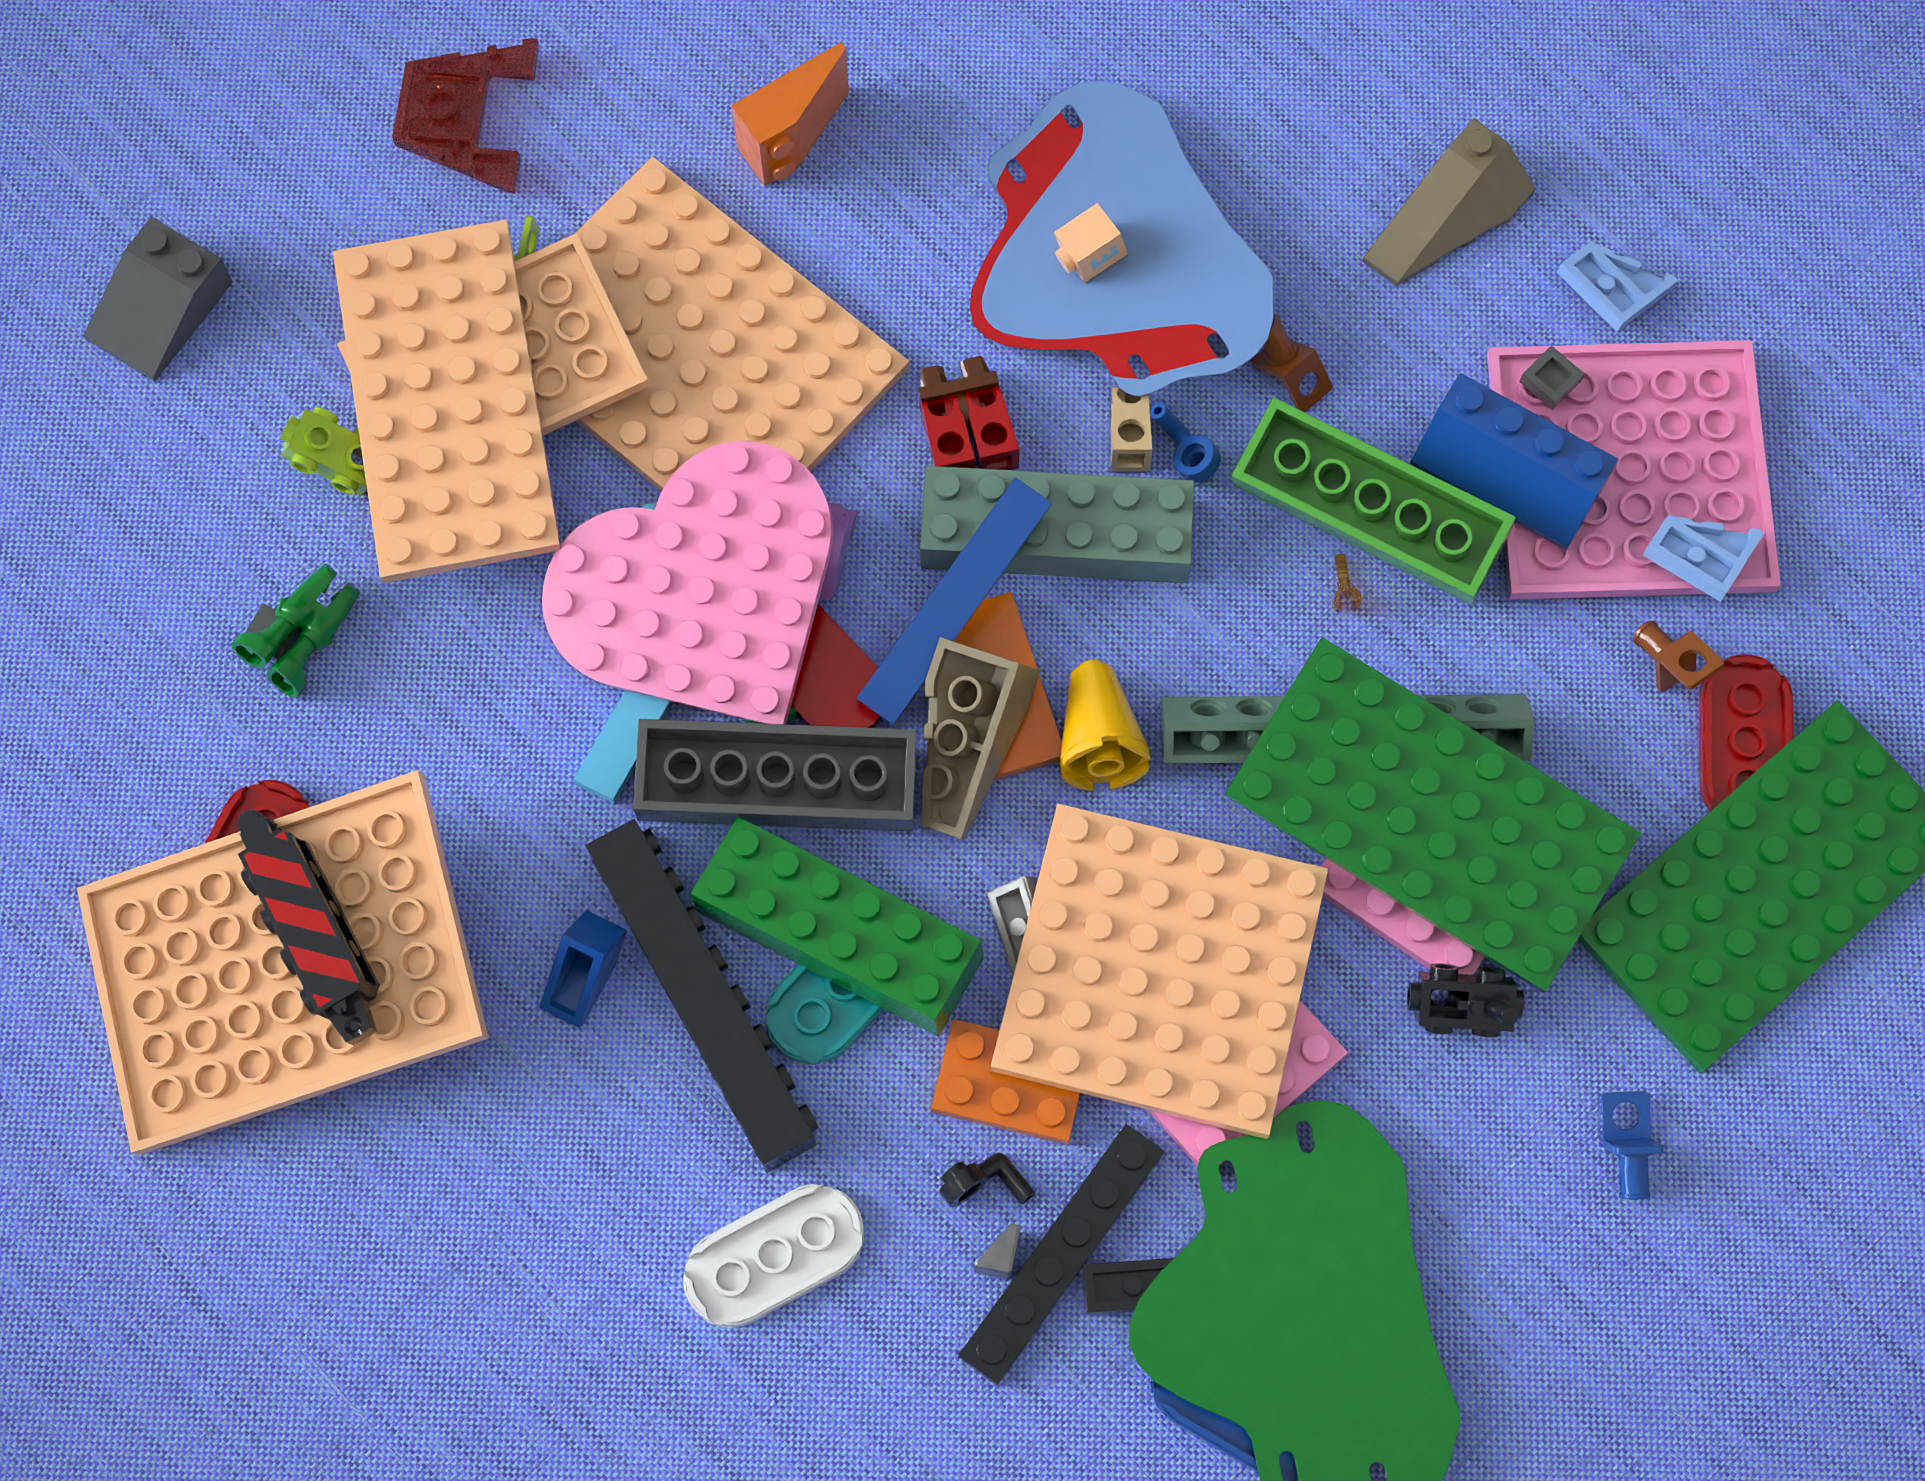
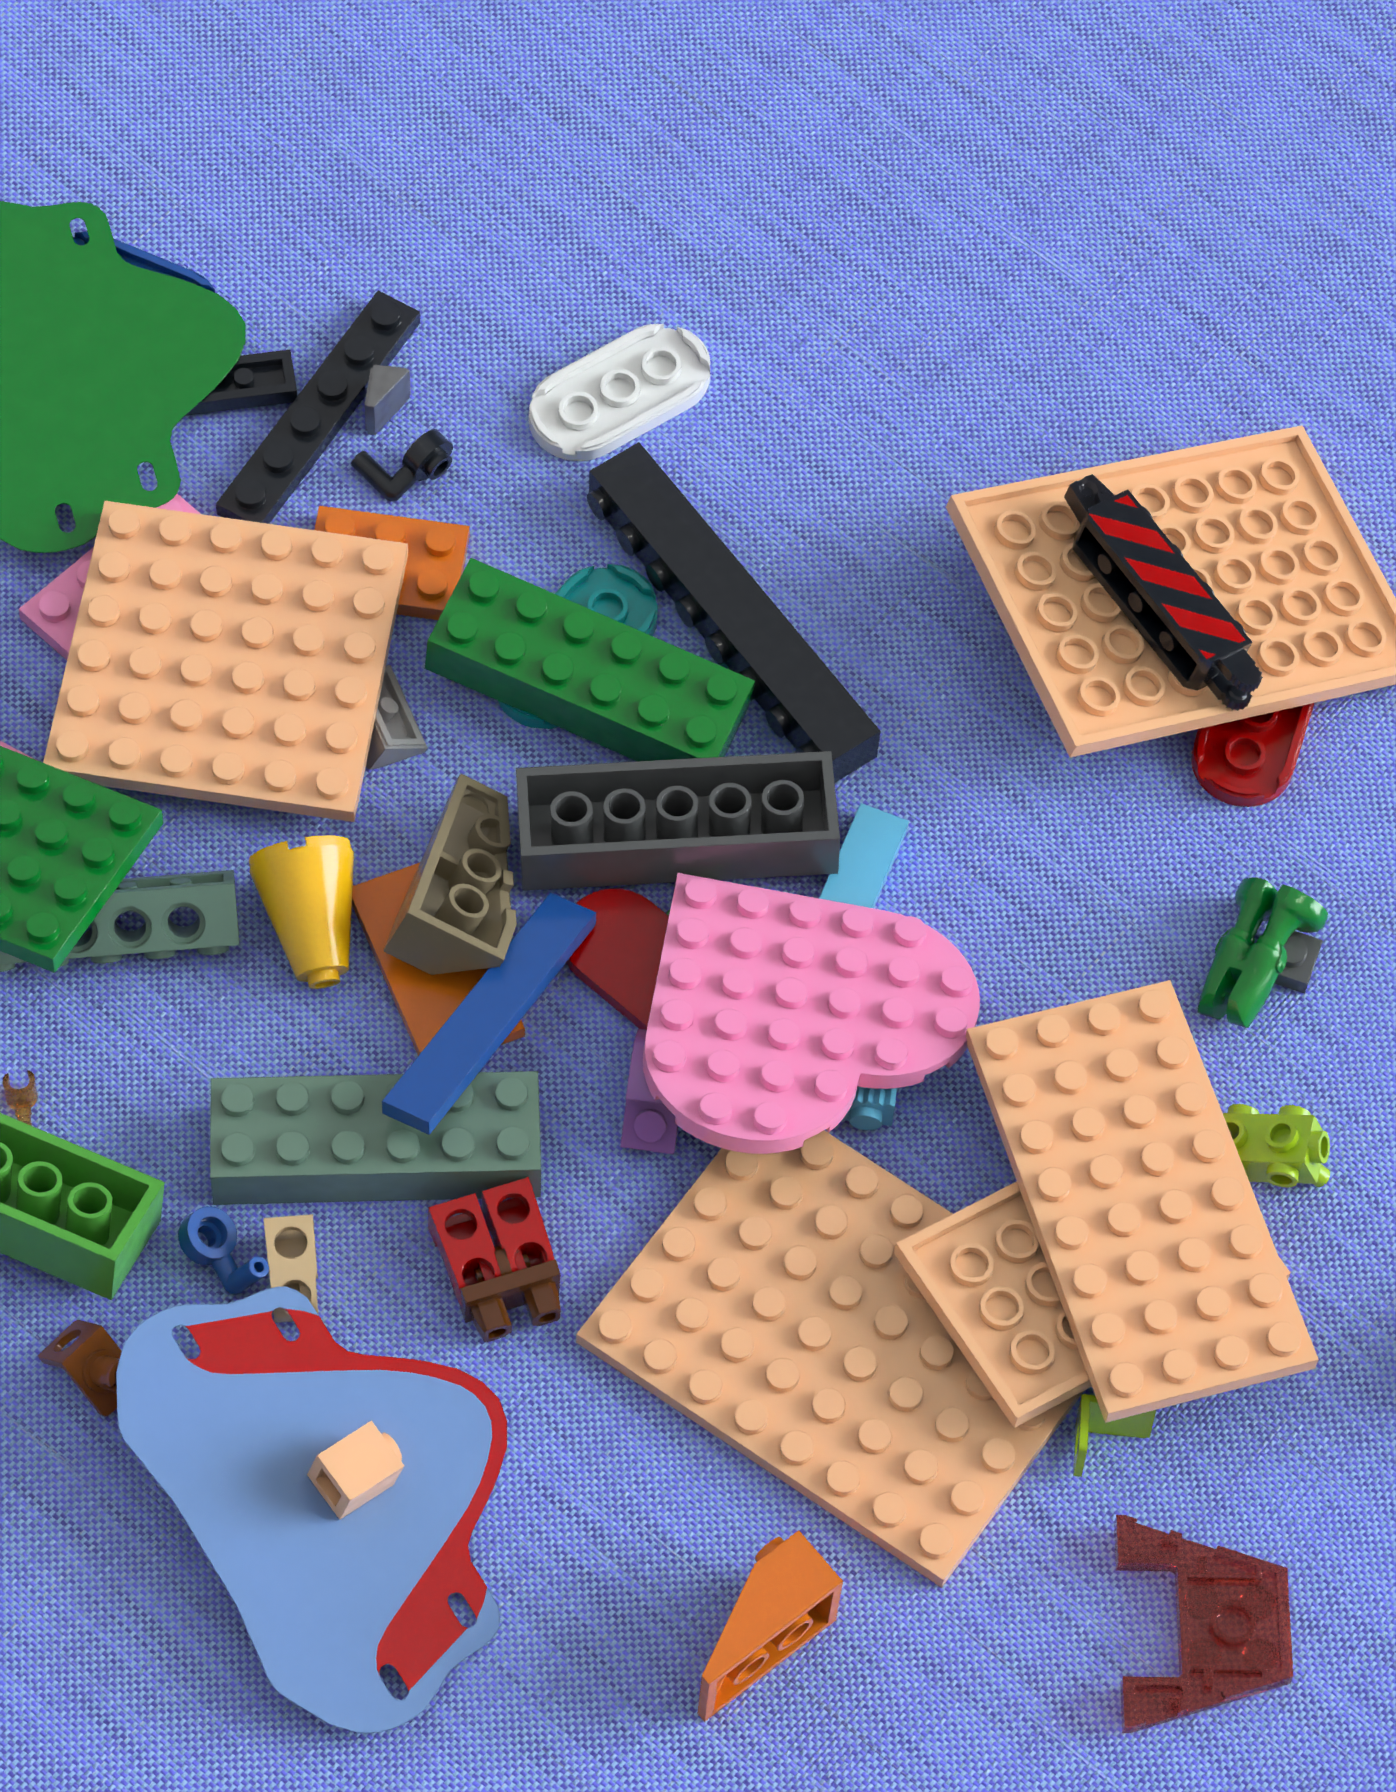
camera: 170 degrees right, 10 degrees down
(582, 967) = (861, 632): blue slope -> none

